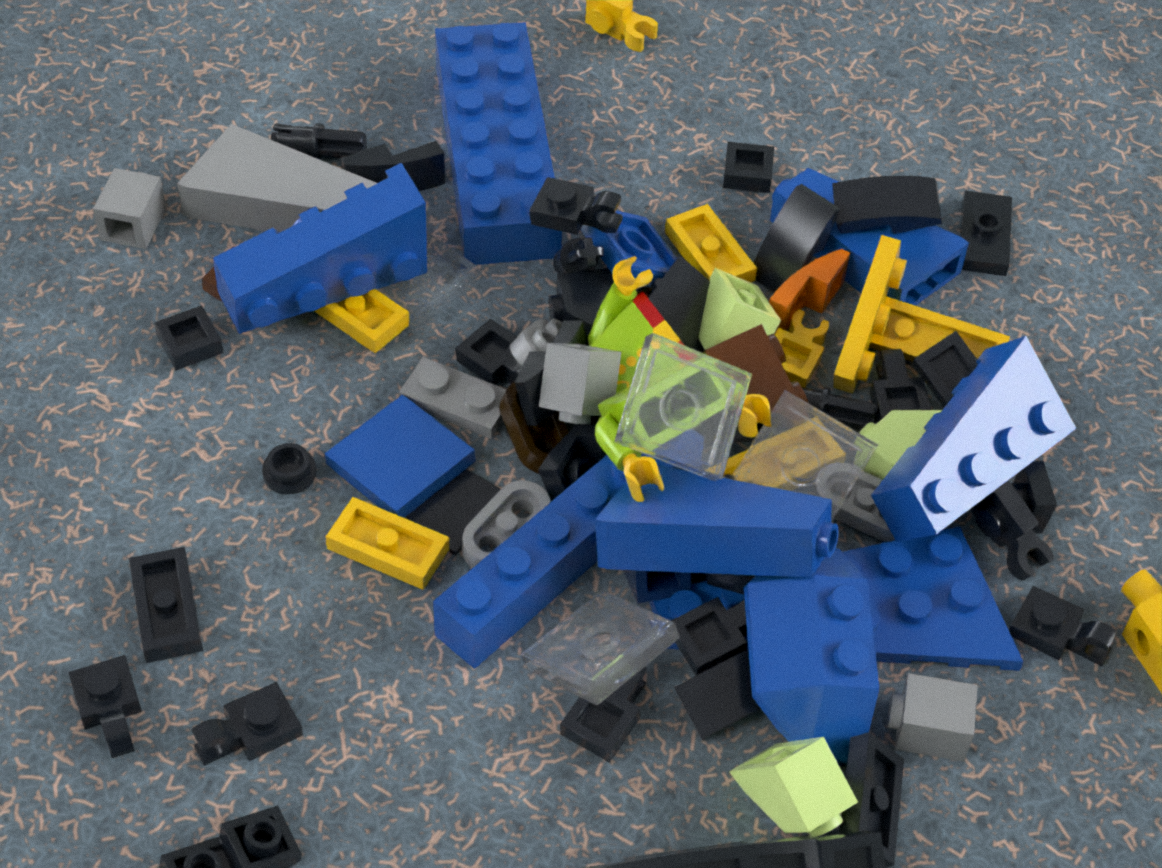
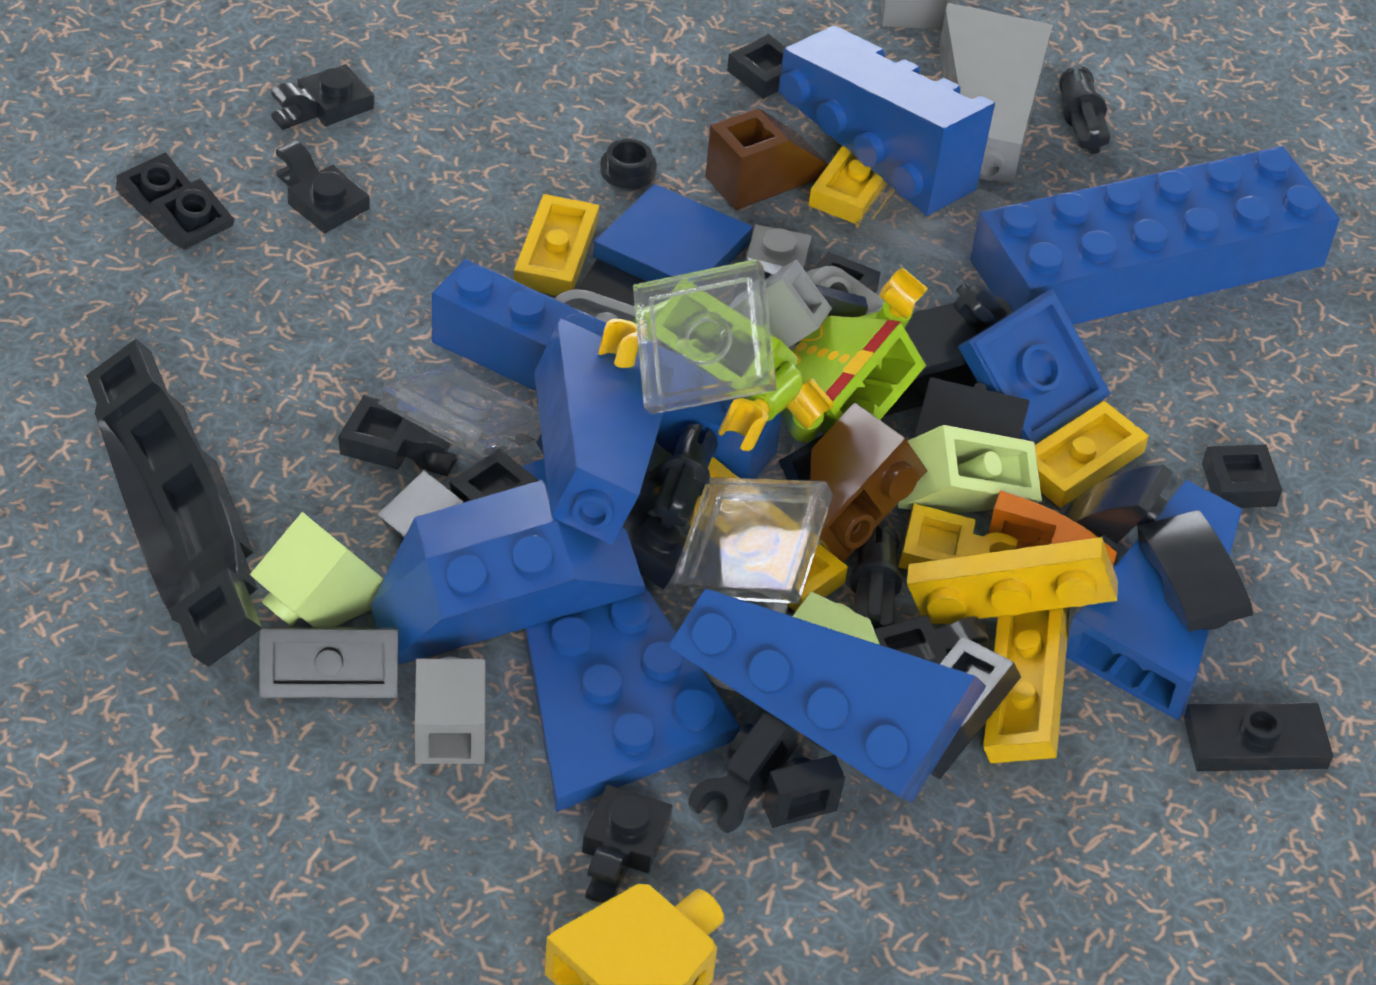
camera: 75 degrees right, 5 degrees down
(165, 605) = (437, 109): black plate -> none
(330, 369) = (758, 158): none -> reddish brown slope
(423, 164) = (1059, 160): black slope -> none
(570, 205) = (1033, 272): black plate -> none

